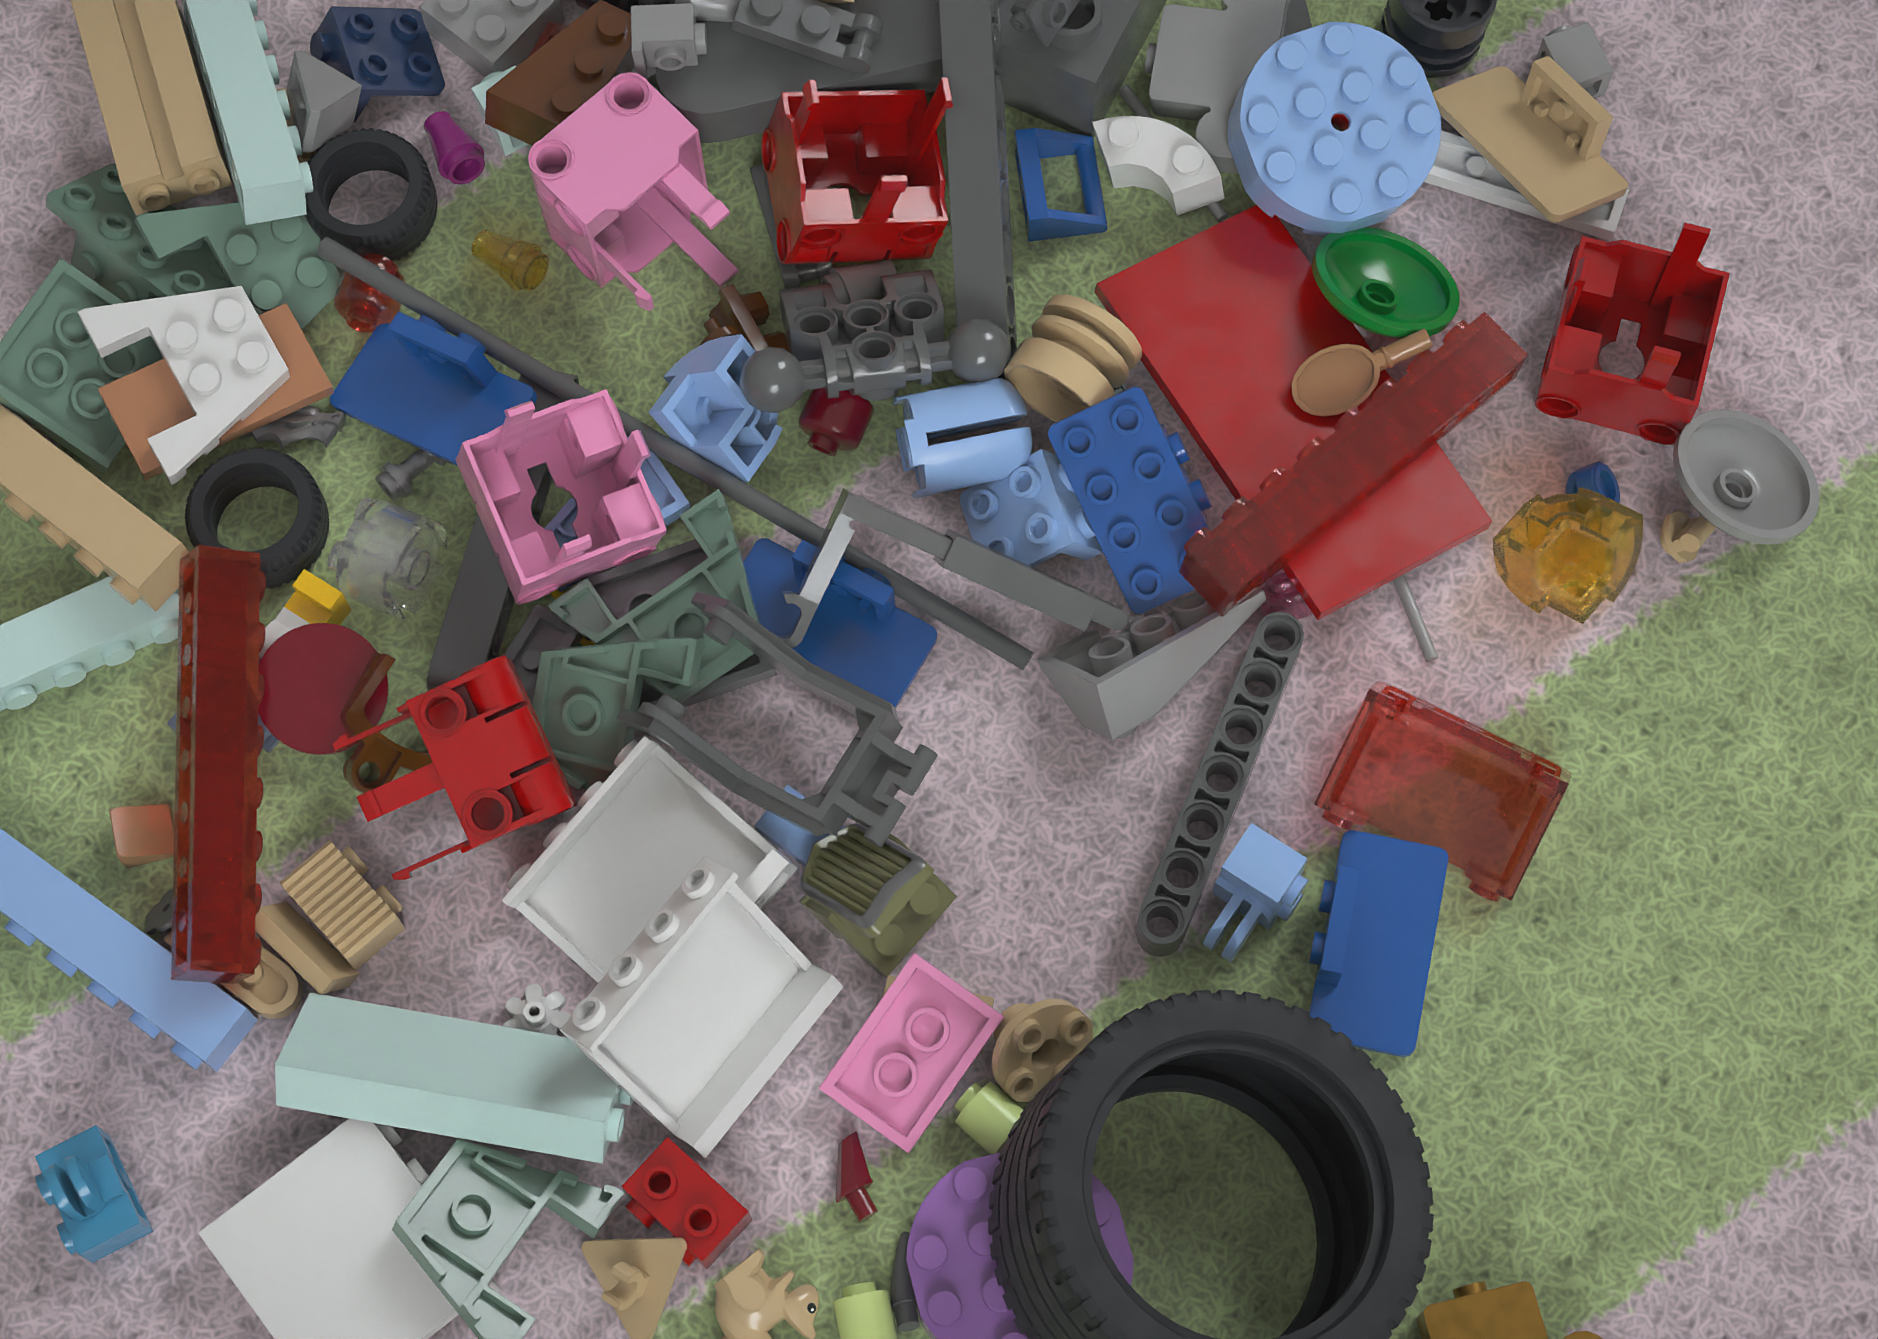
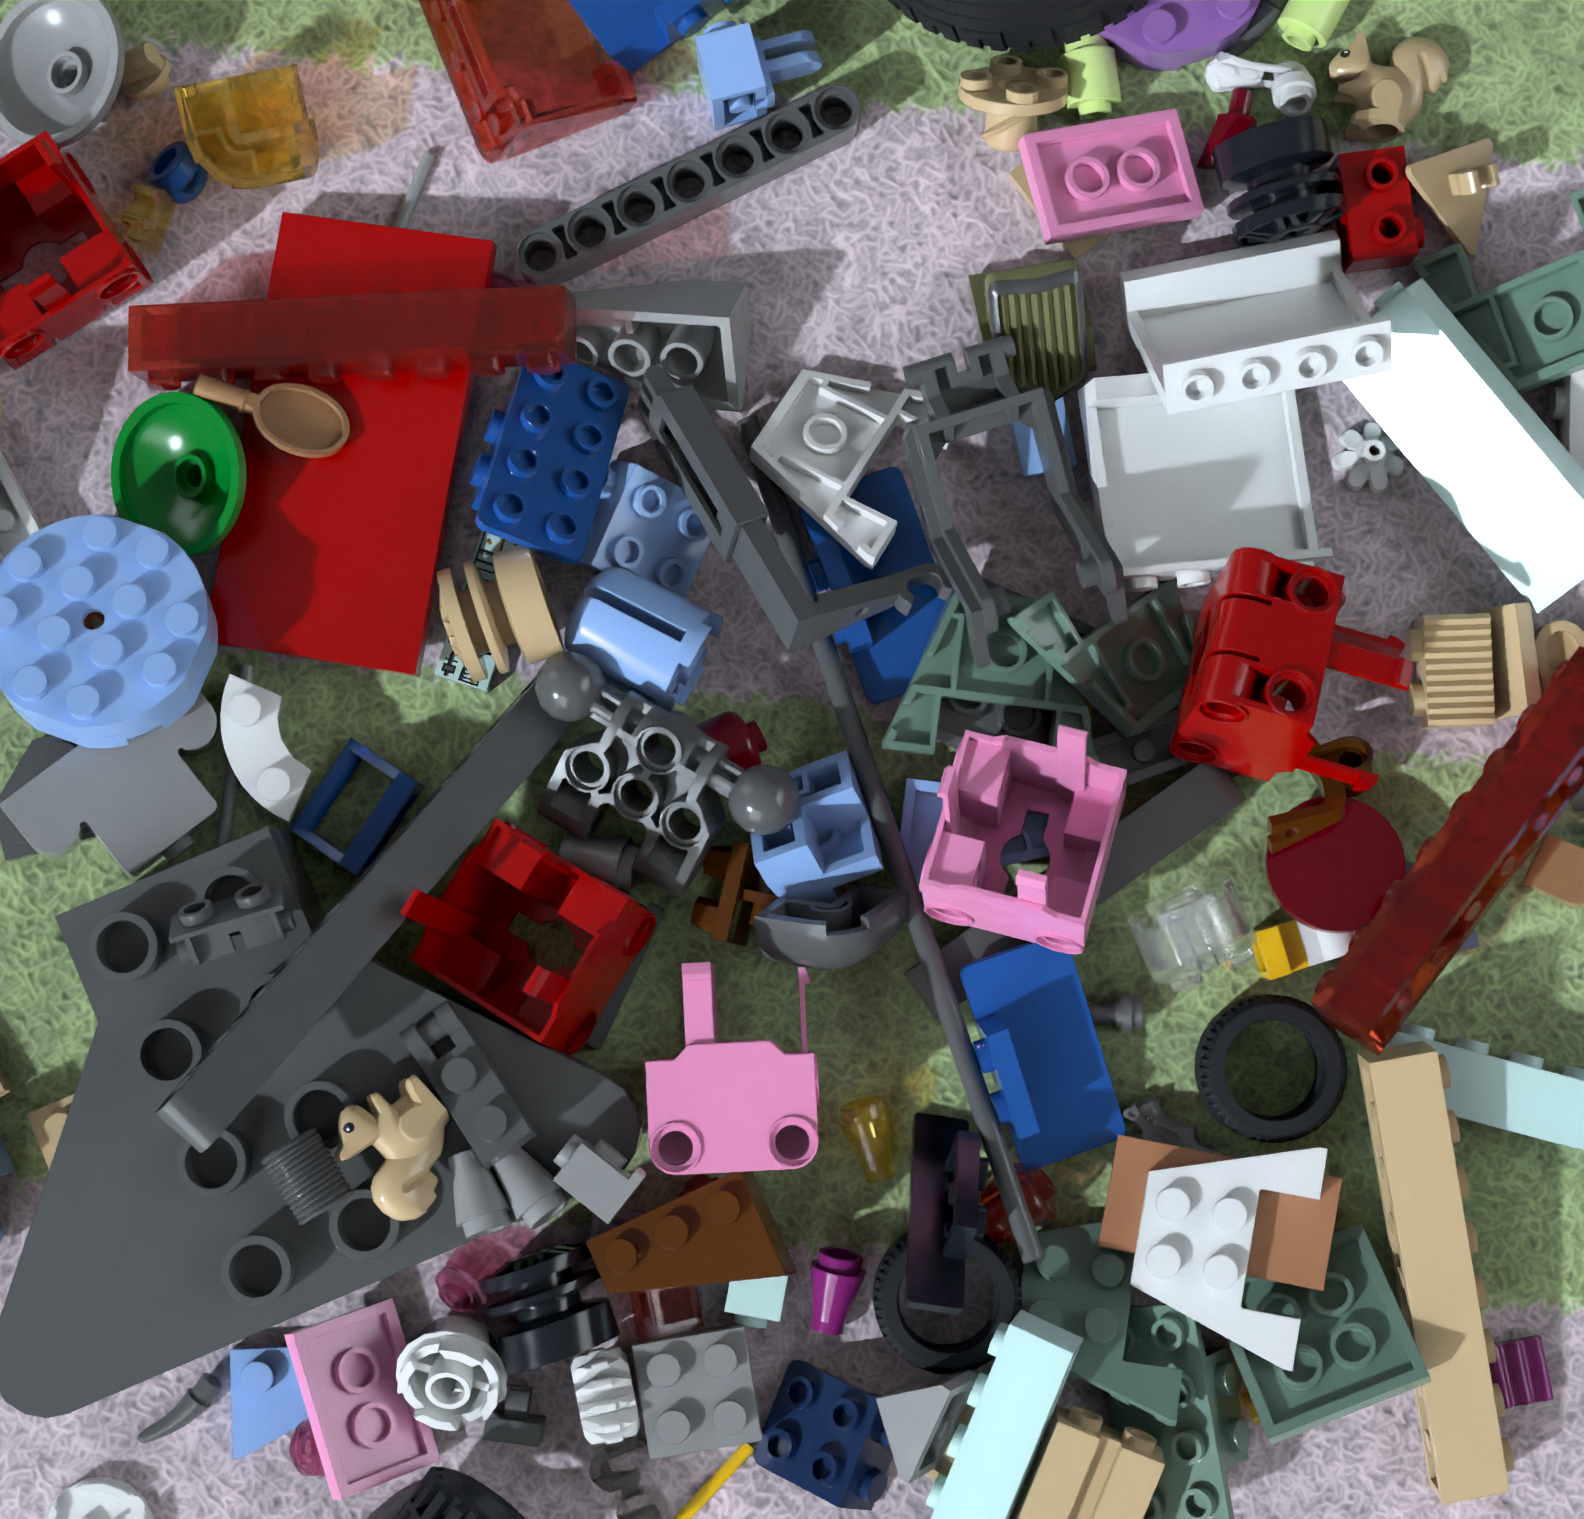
camera: 140 degrees left, 15 degrees up
(415, 225) = (942, 1211): none -> black bracket
(649, 344) = (830, 934): none -> dark grey brick
(767, 1143) = (1277, 171): none -> black wheel
(832, 1244) = (1291, 90): none -> white piece
(951, 672) = (823, 446): none -> white wing
(1579, 435) = (149, 217): none -> clear yellow plate

